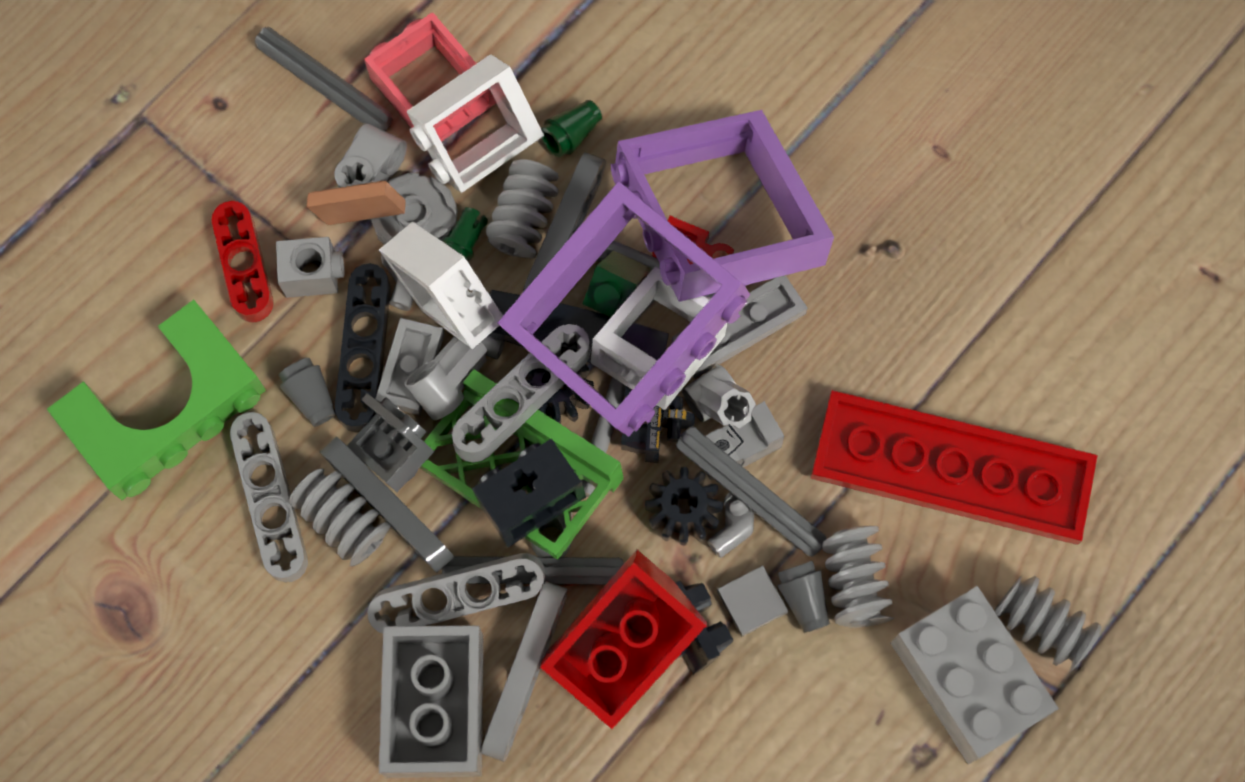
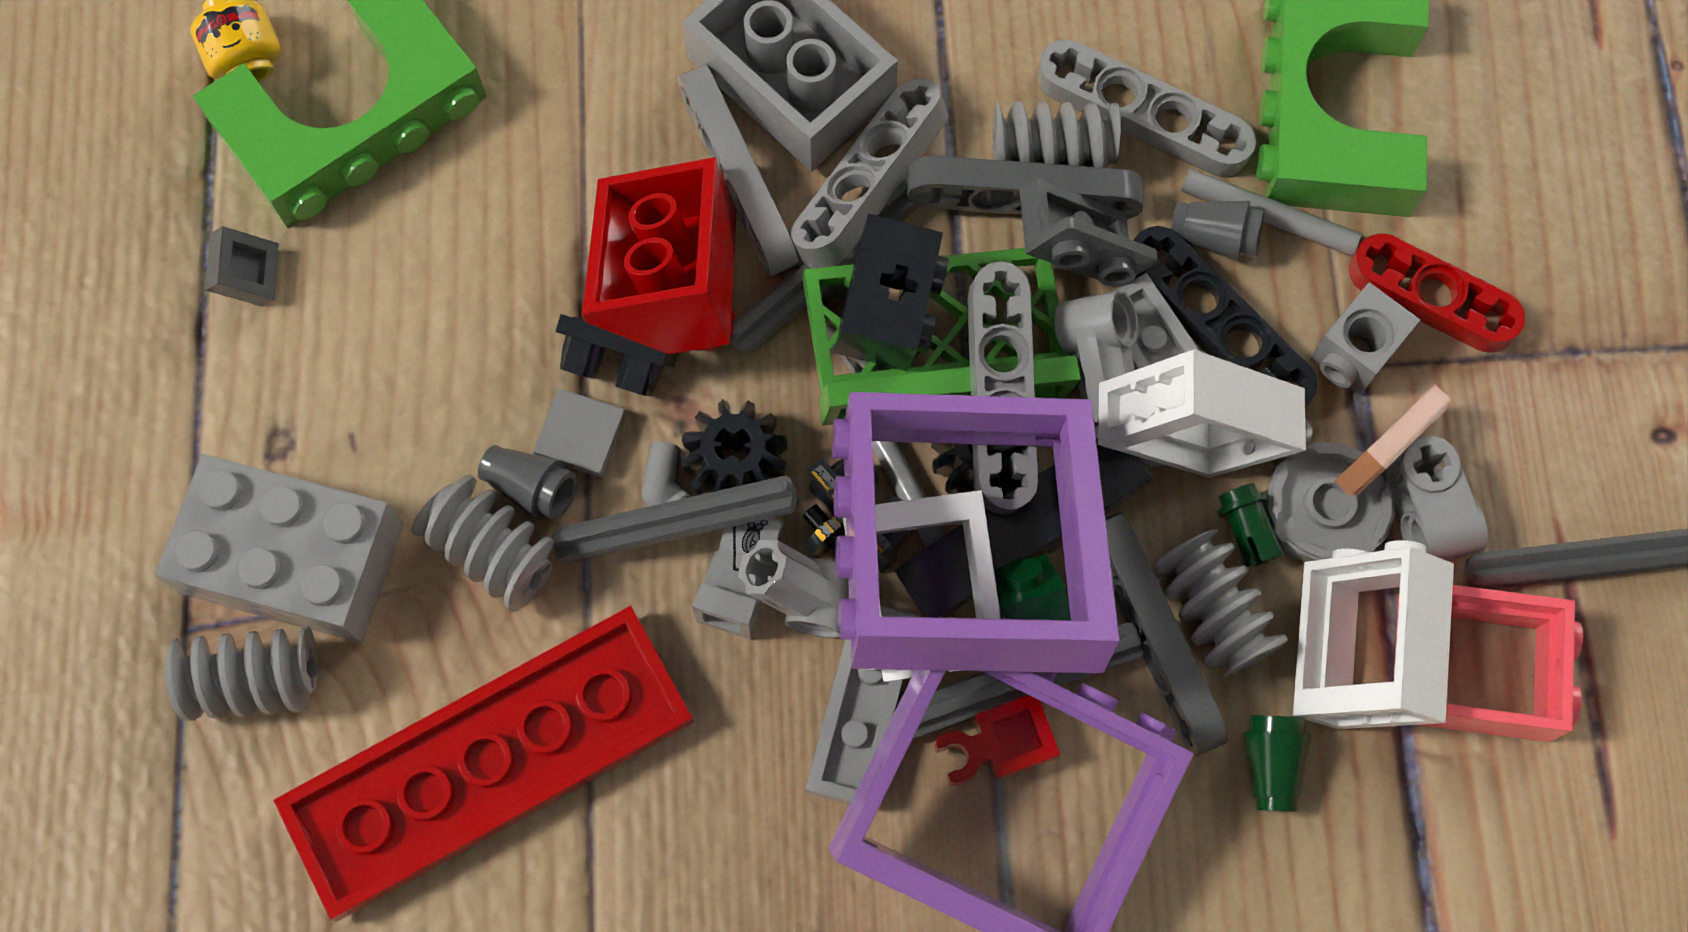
camera: 135 degrees right, 0 degrees up
(271, 380) = (1275, 213): none -> light grey bar

